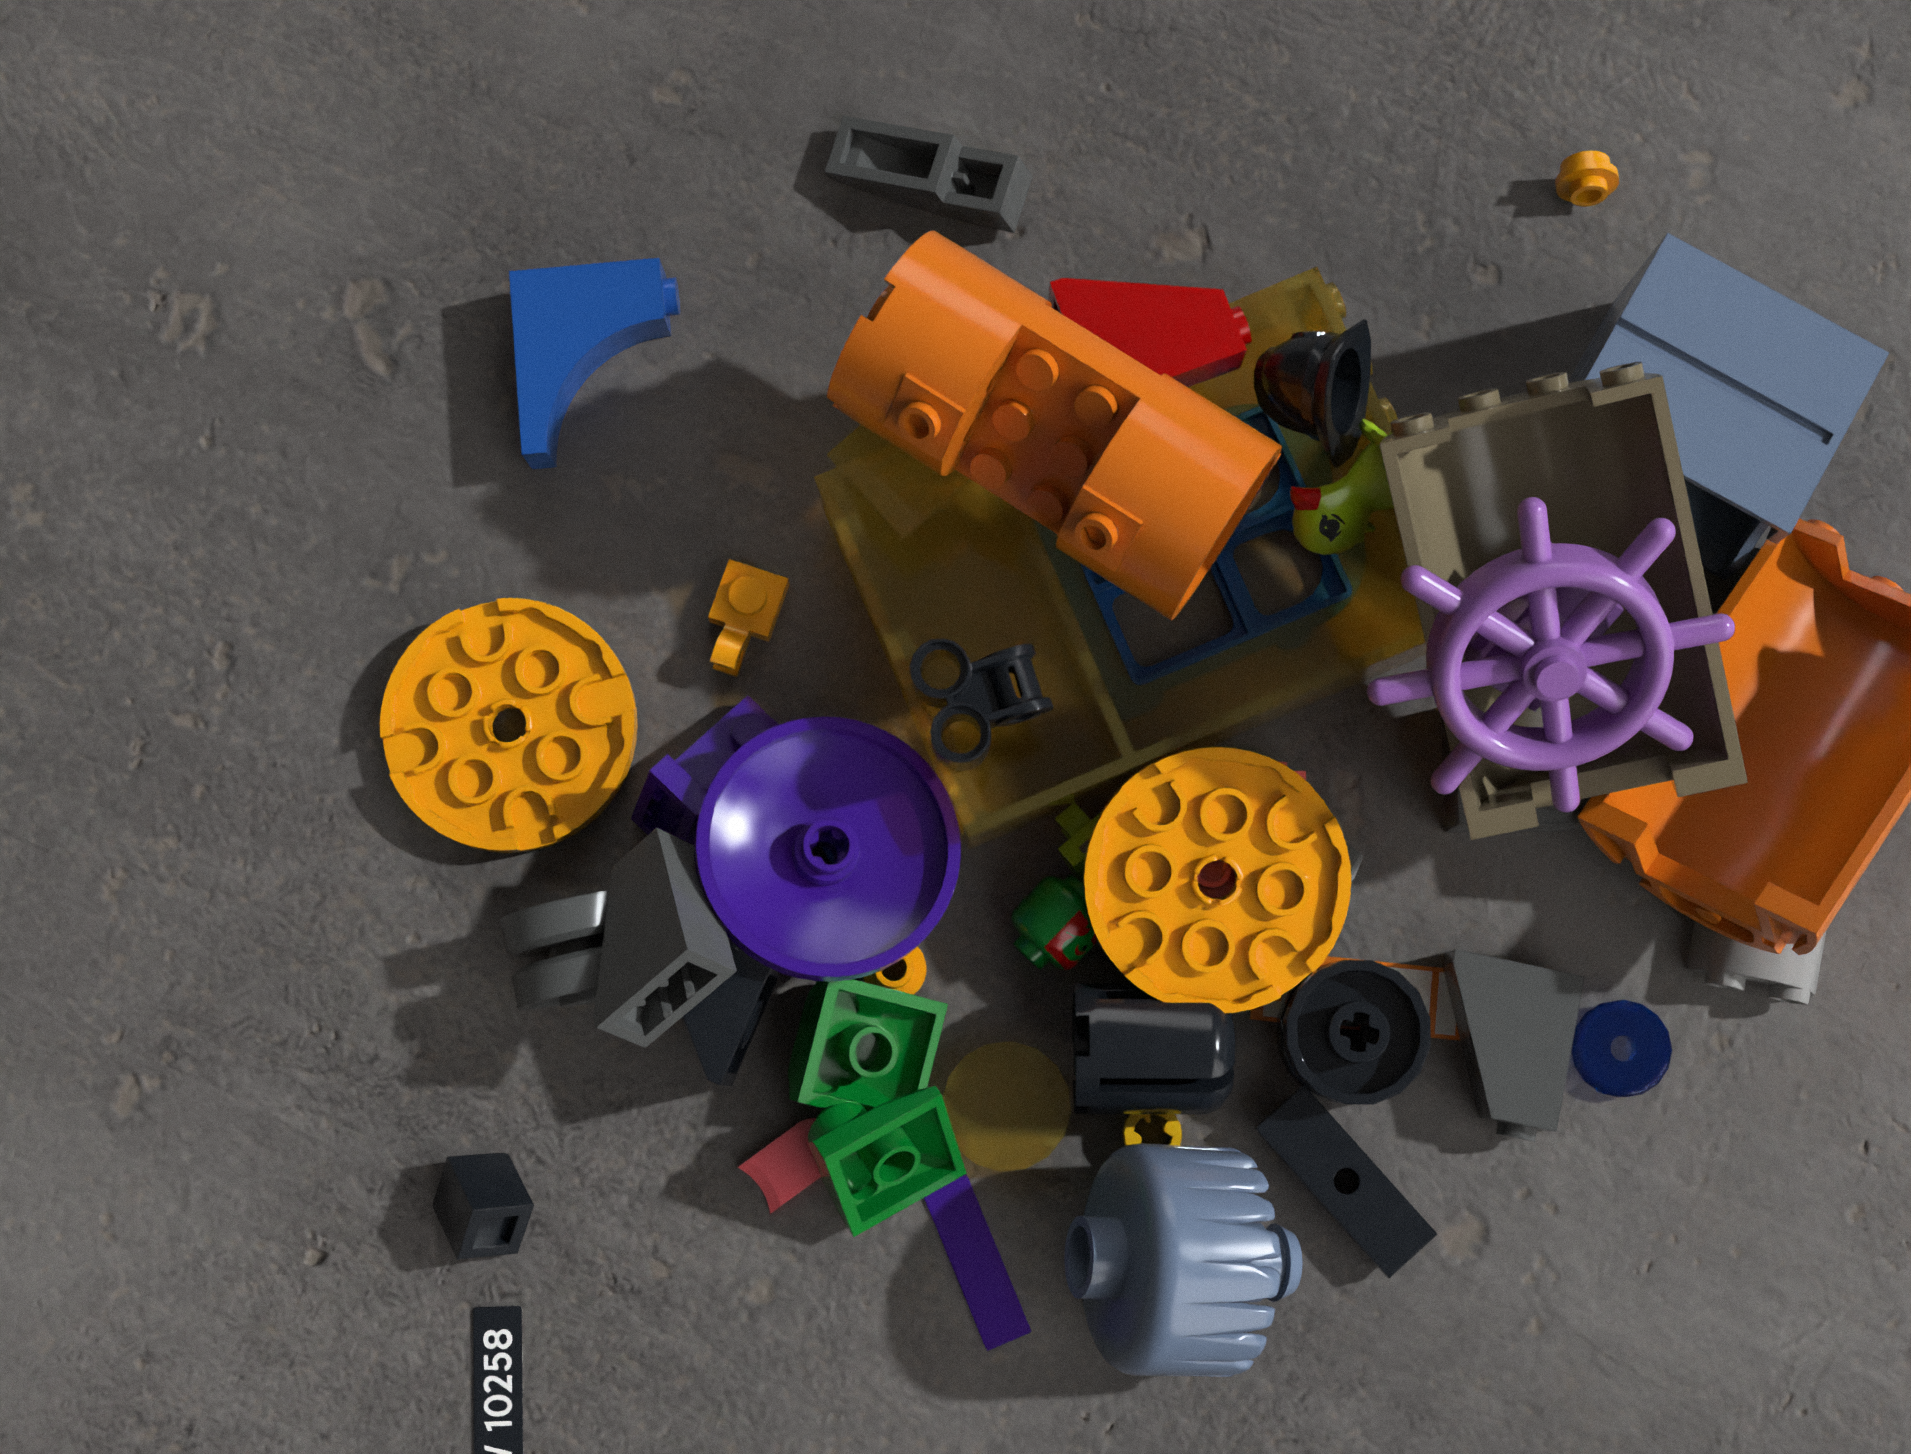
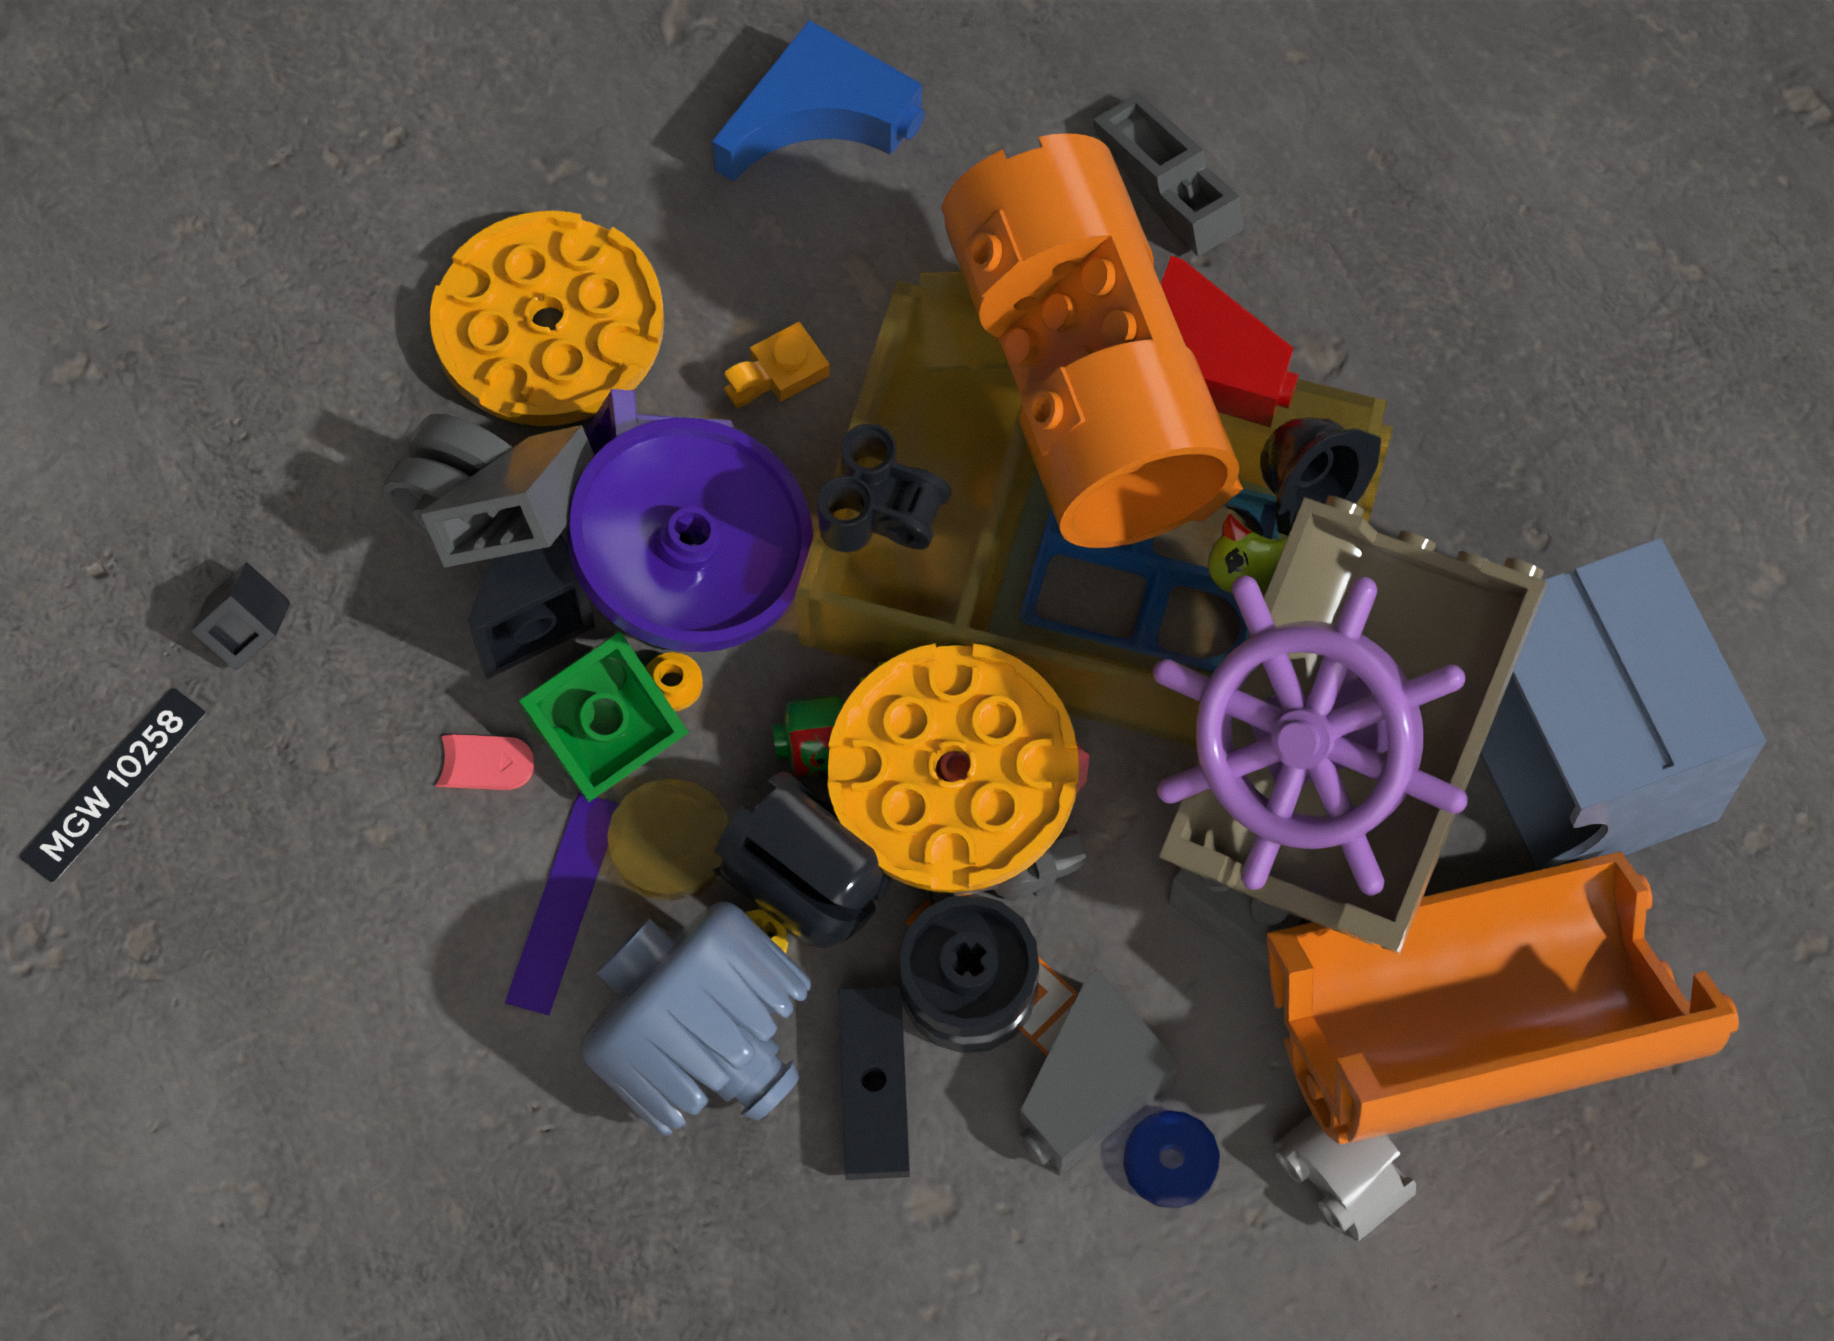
camera: 35 degrees right, 15 degrees down
(884, 1156) = (550, 791): green slope -> none
(1586, 178) = (1667, 517): light orange plate -> none

